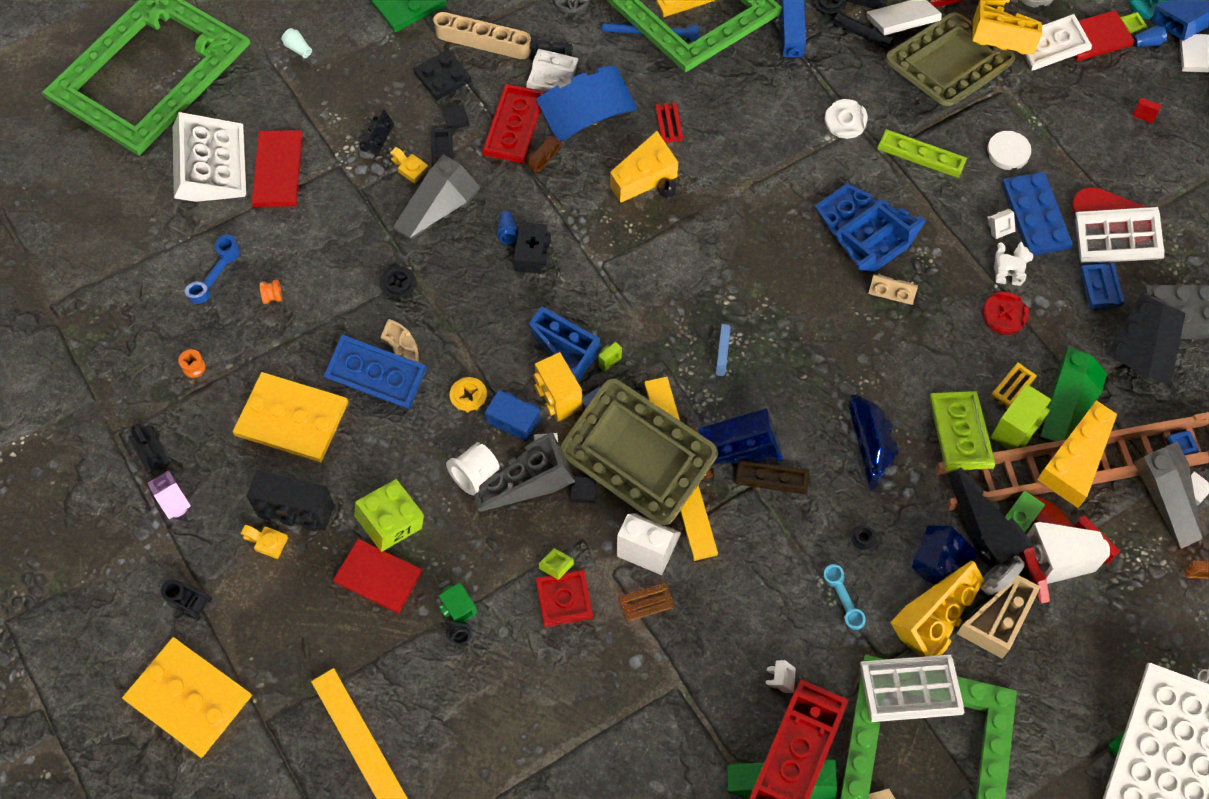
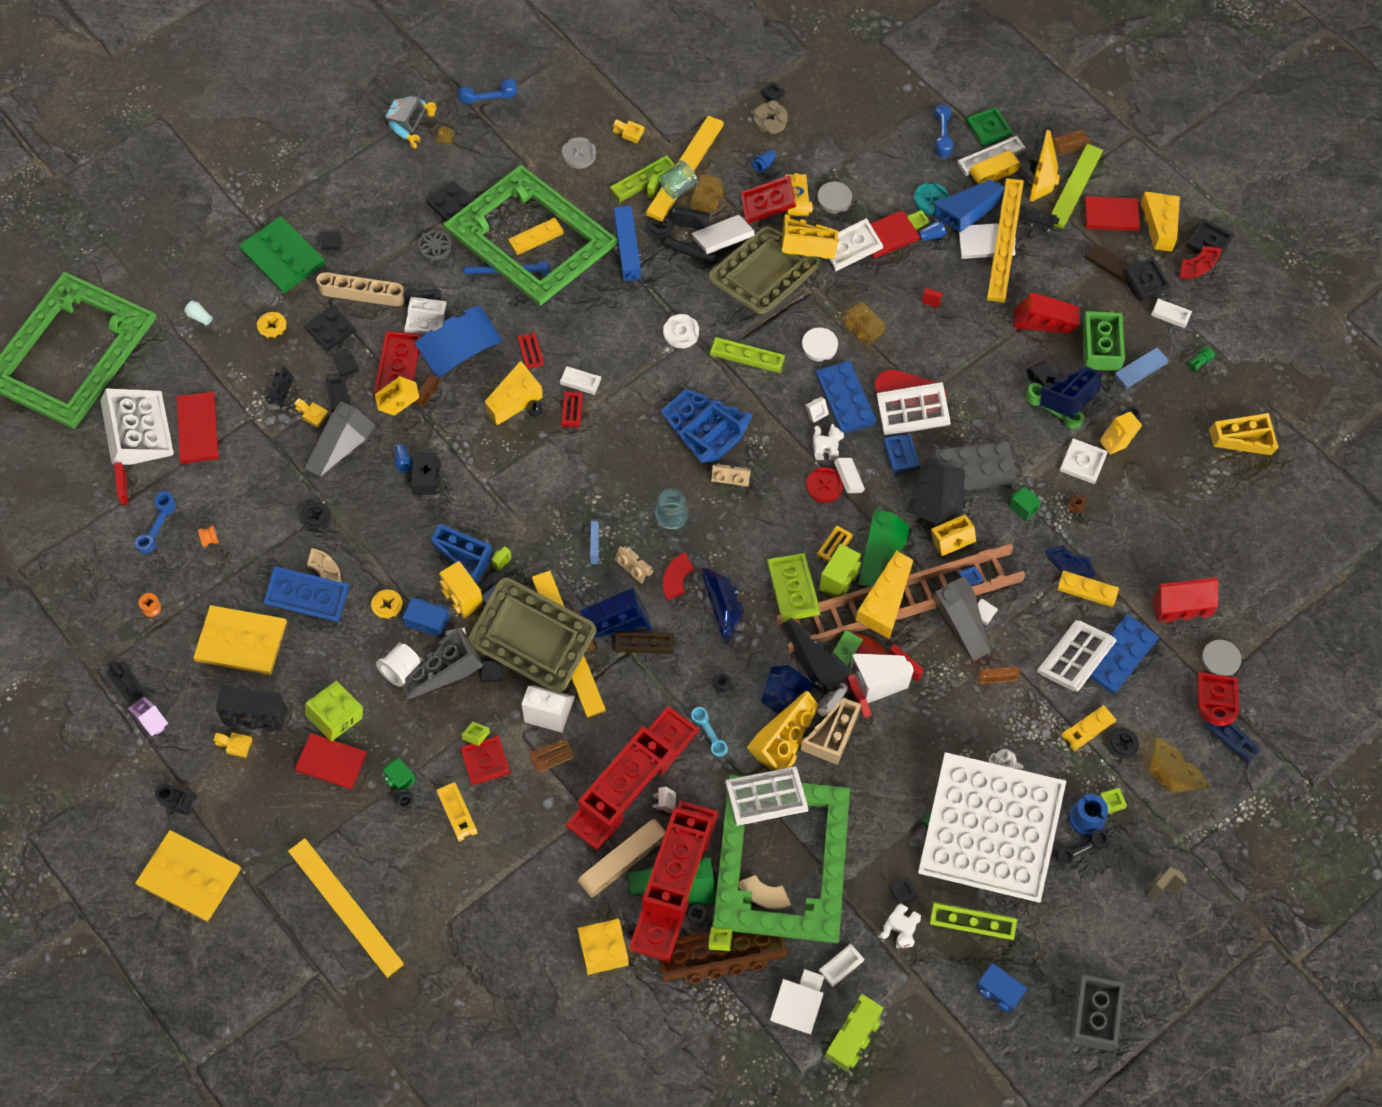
camera: 10 degrees left, 0 degrees up
(181, 221) = (121, 483): none -> red tile
(379, 57) = (271, 318): none -> yellow gear
(509, 155) = (397, 396): none -> yellow brick
(522, 657) = (456, 811): none -> yellow plate
(708, 208) = (570, 422): none -> red tile
(722, 744) = (622, 858): none -> tan beam
(723, 162) = (580, 380): none -> white tile
(740, 641) = (628, 774): none -> red bracket
(763, 378) = (629, 562): none -> tan hinge
(816, 400) = (675, 575): none -> red tile
(819, 330) = (669, 517): none -> clear light blue piece
(1036, 304) = (849, 475): none -> white tile
(1065, 131) = (864, 323): none -> clear yellow brick
(1163, 390) = (953, 535): none -> yellow brick

